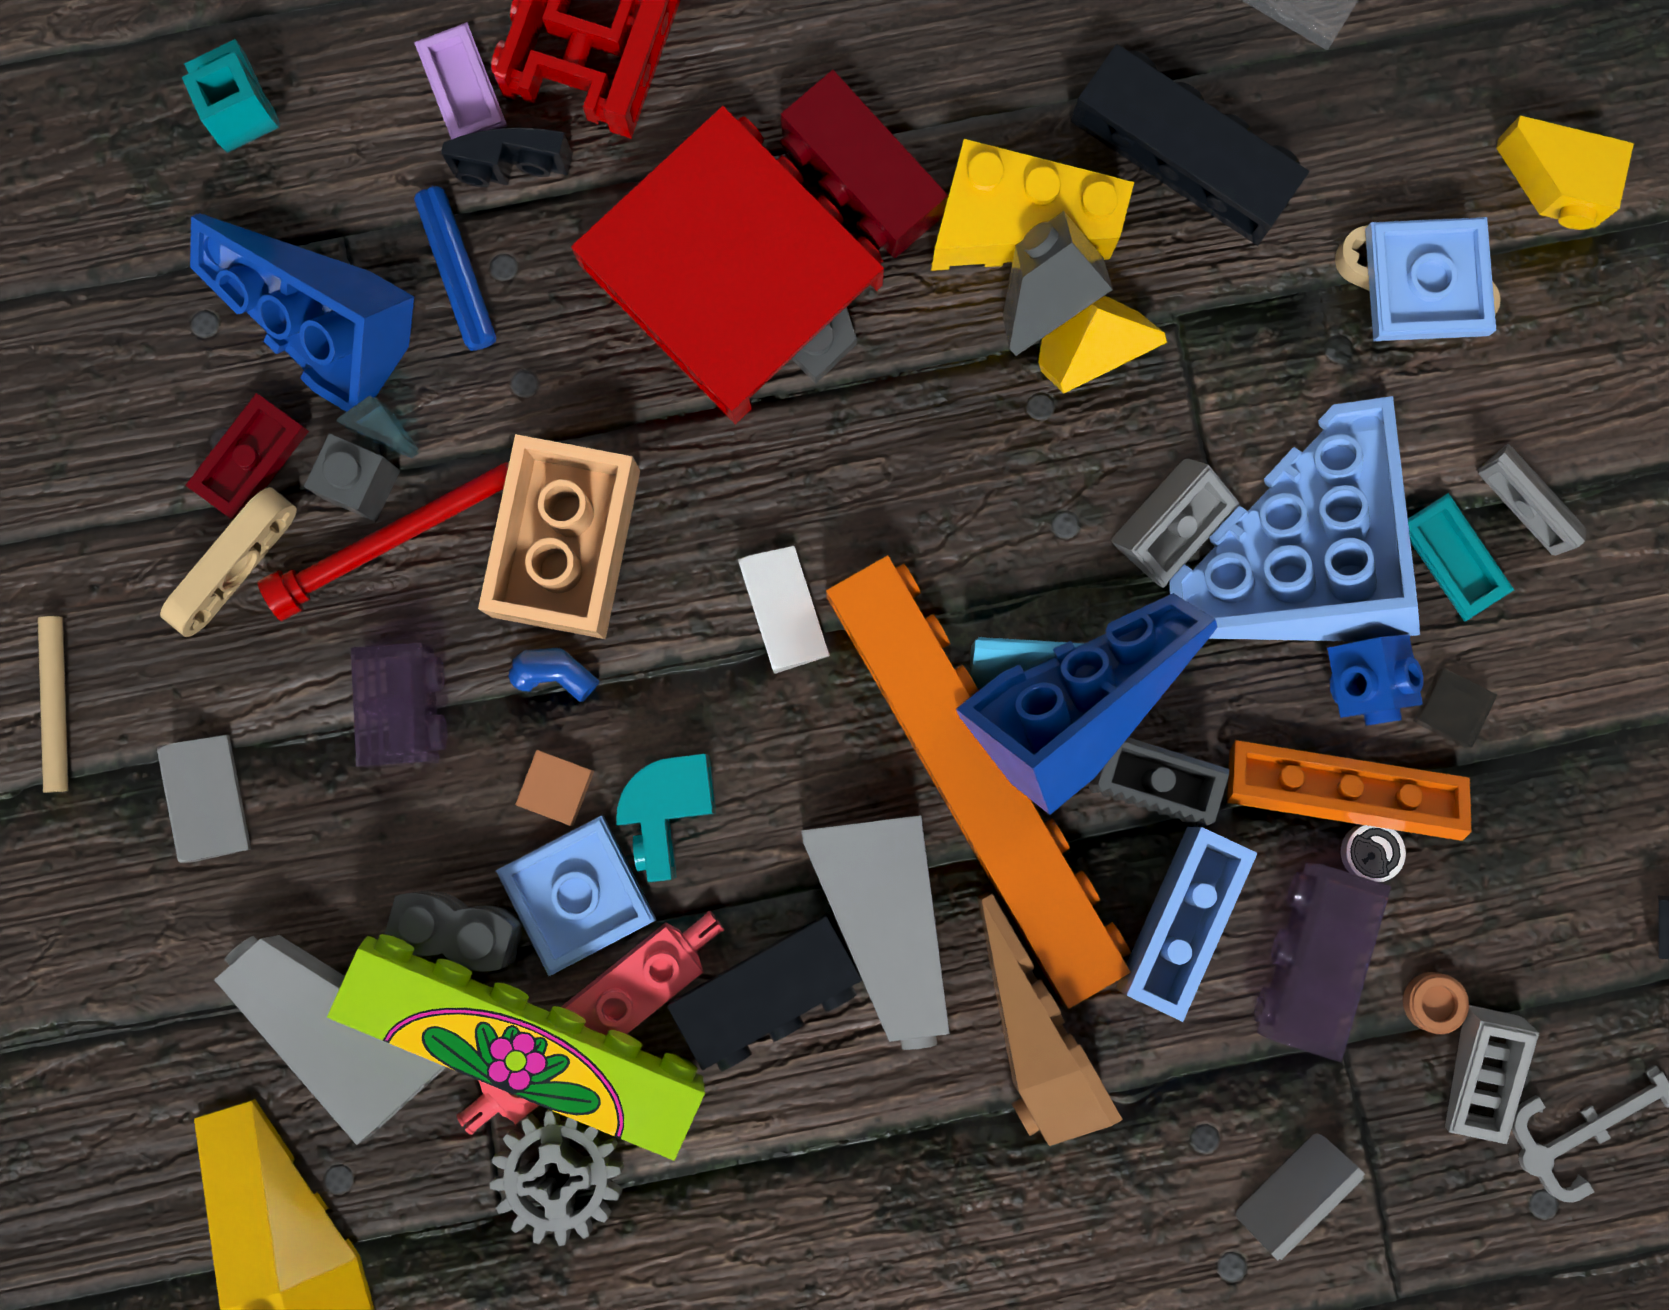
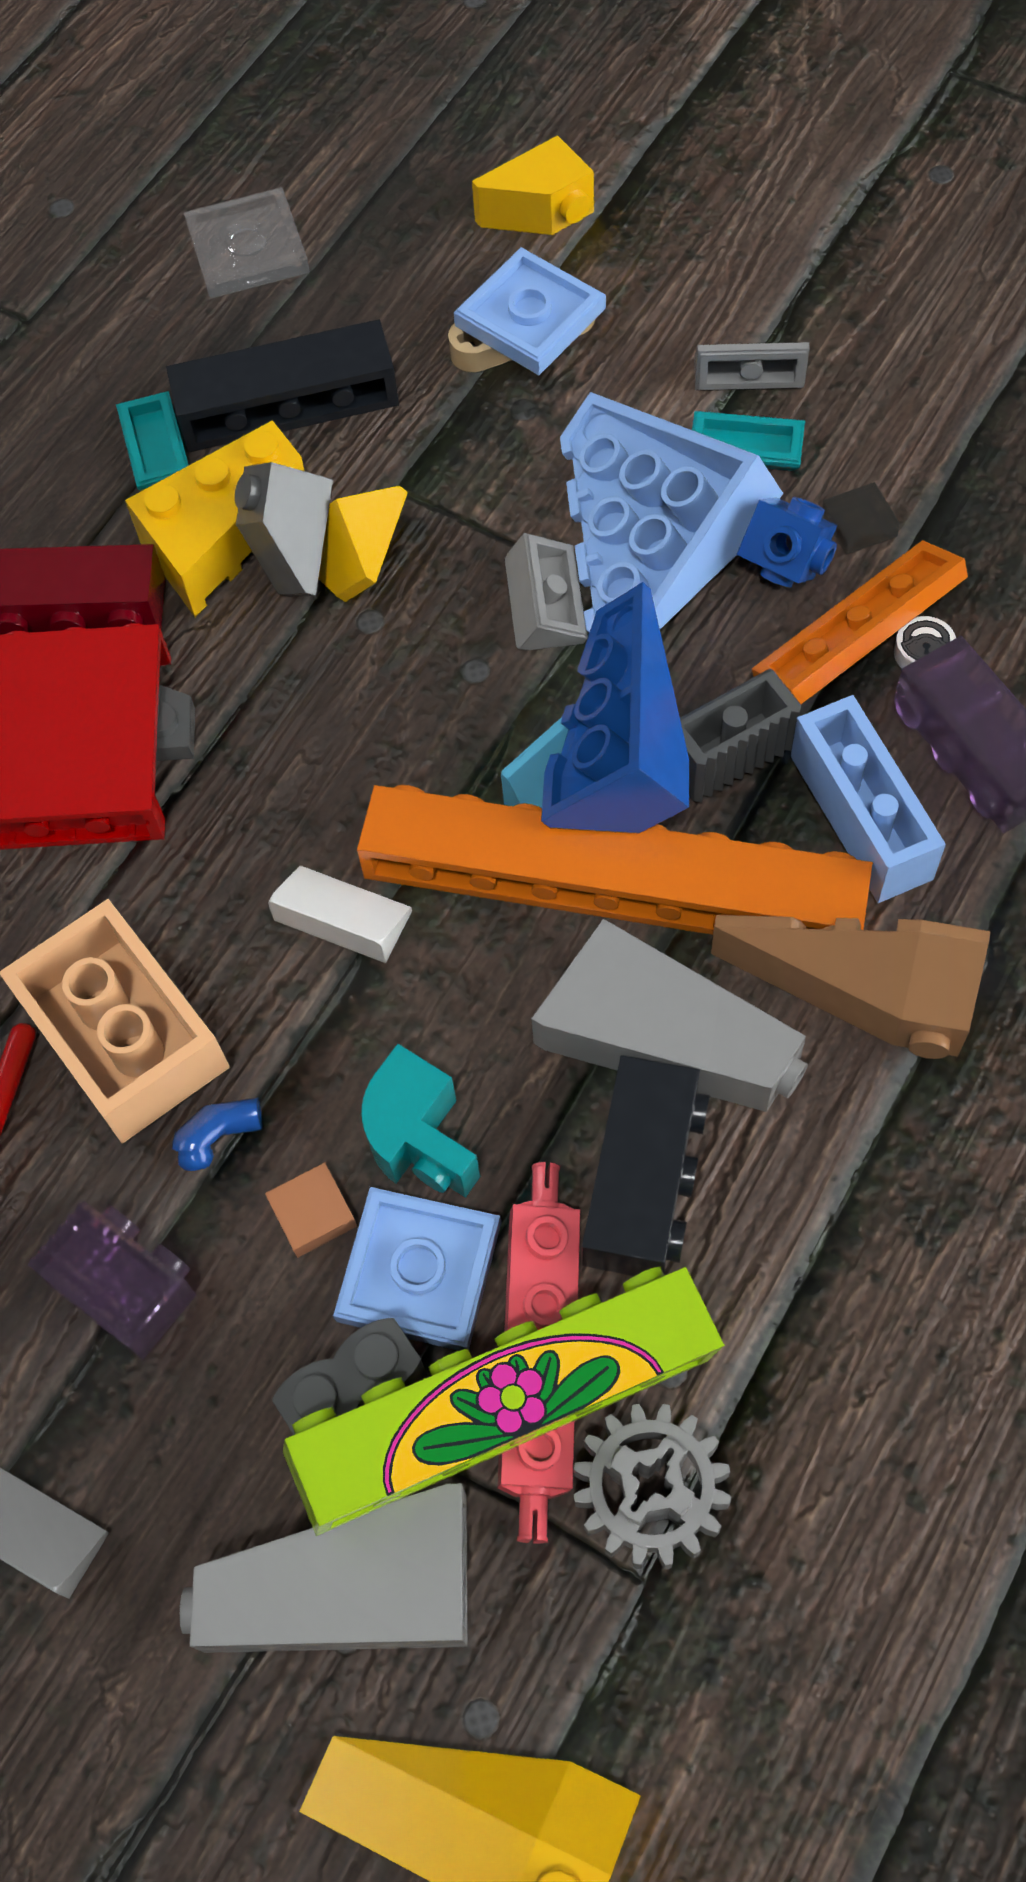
camera: 45 degrees left, 20 degrees down
(1052, 88) = (152, 438): none -> teal tile

